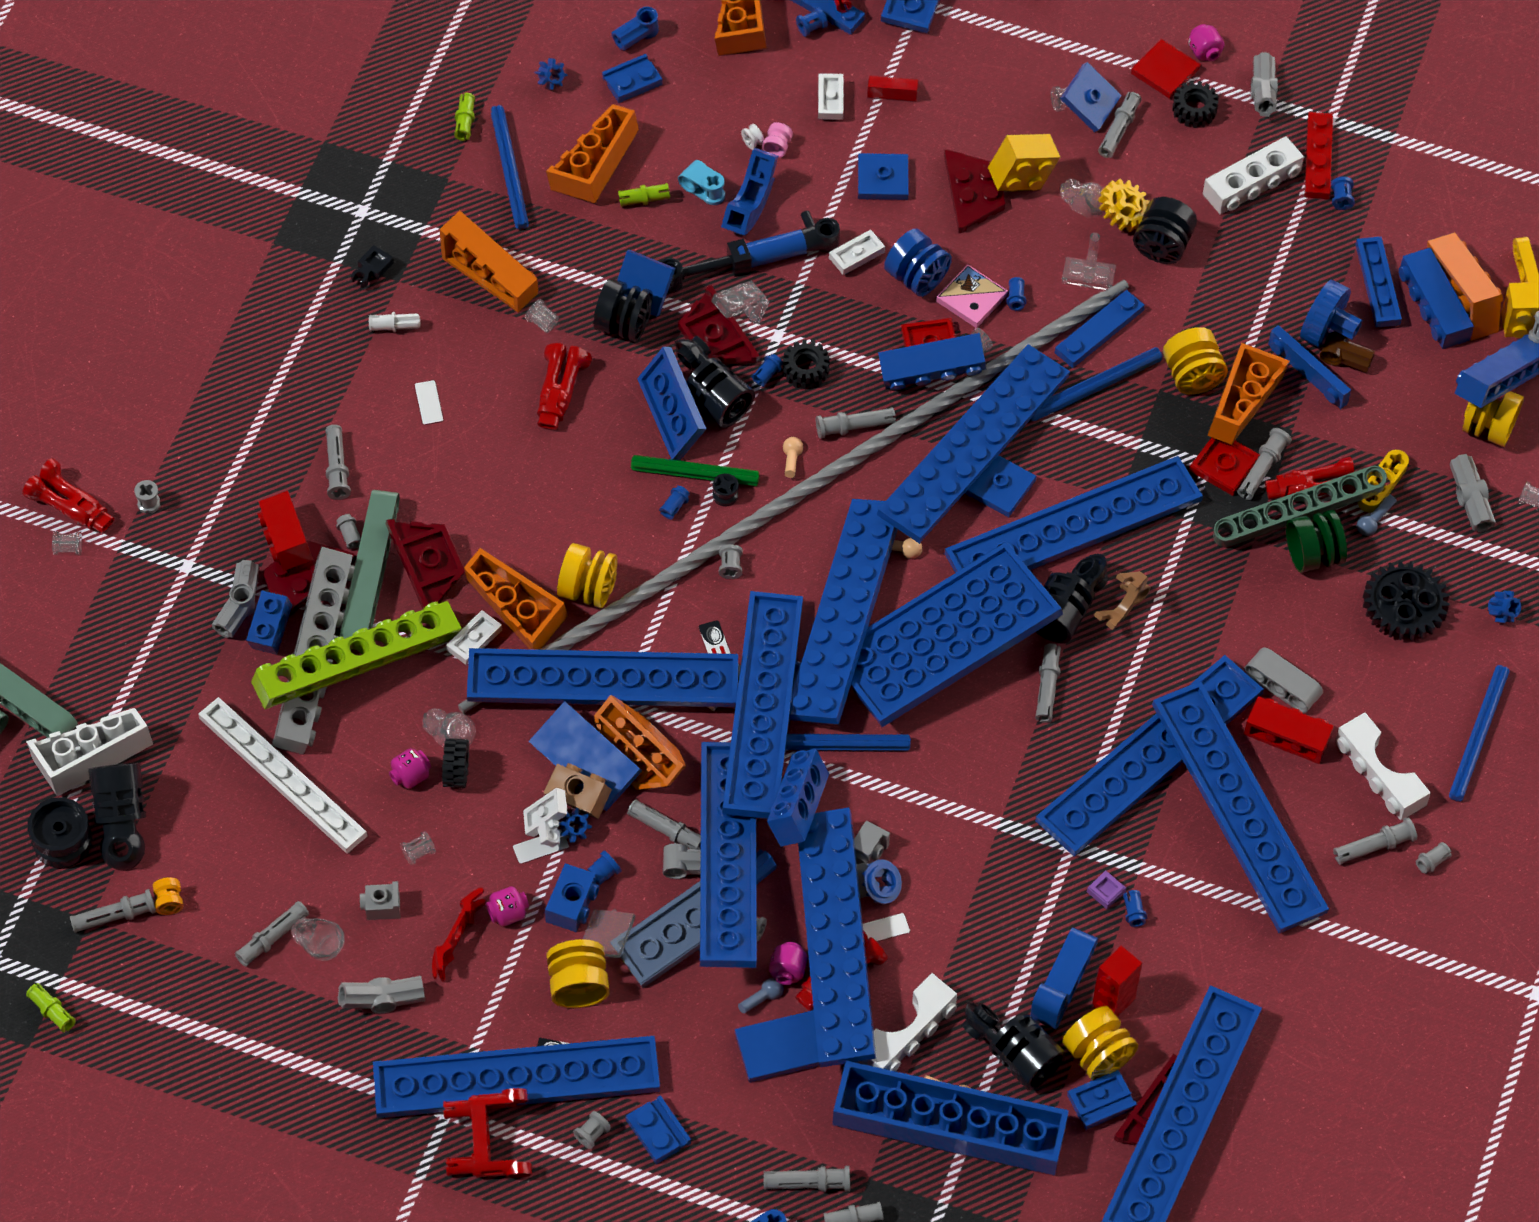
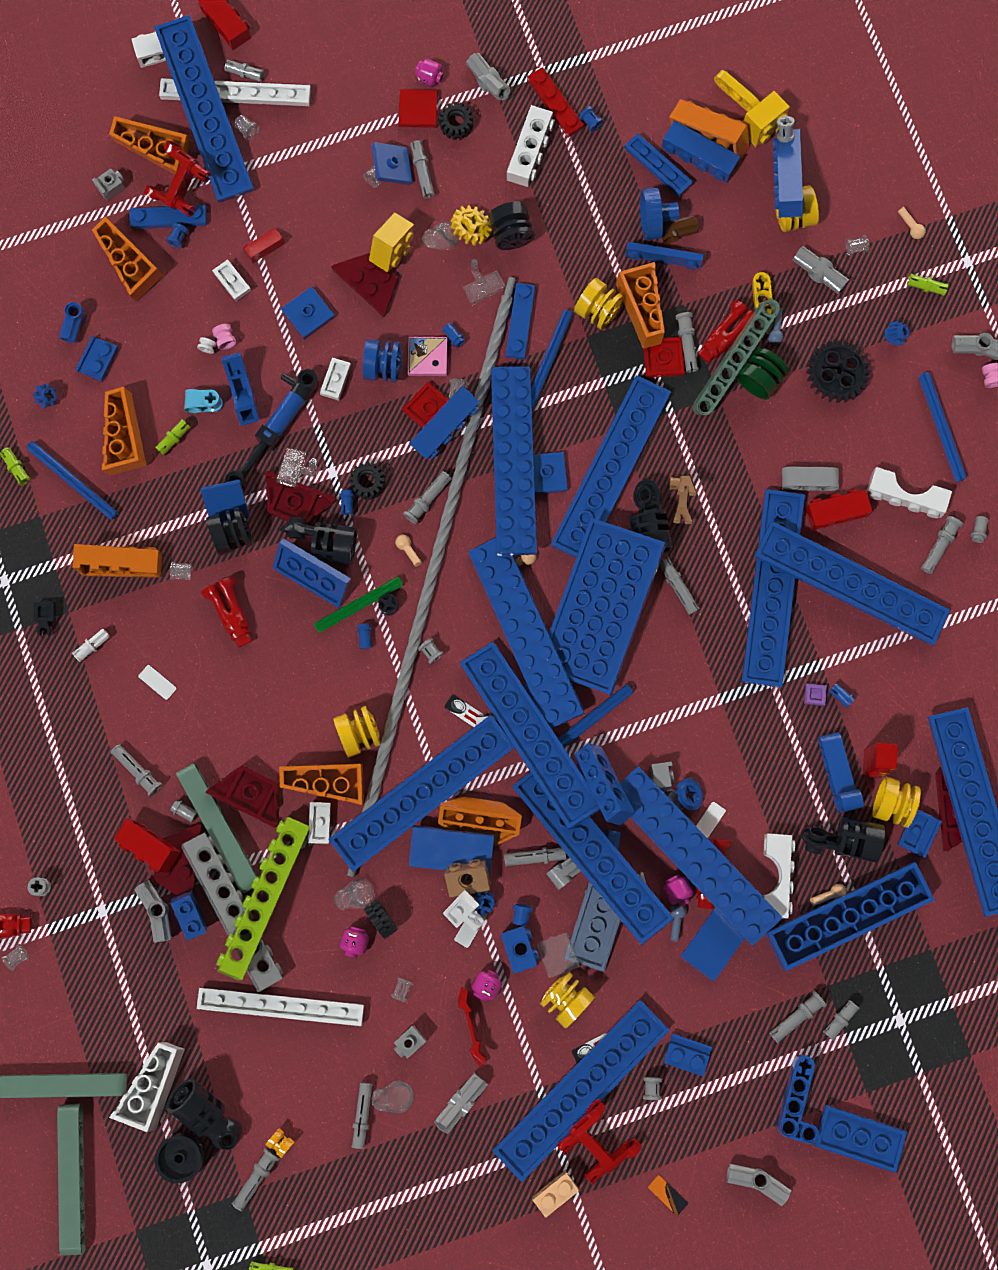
camera: 35 degrees left, 20 degrees up
(401, 1150) = (555, 1193): none -> light nougat brick

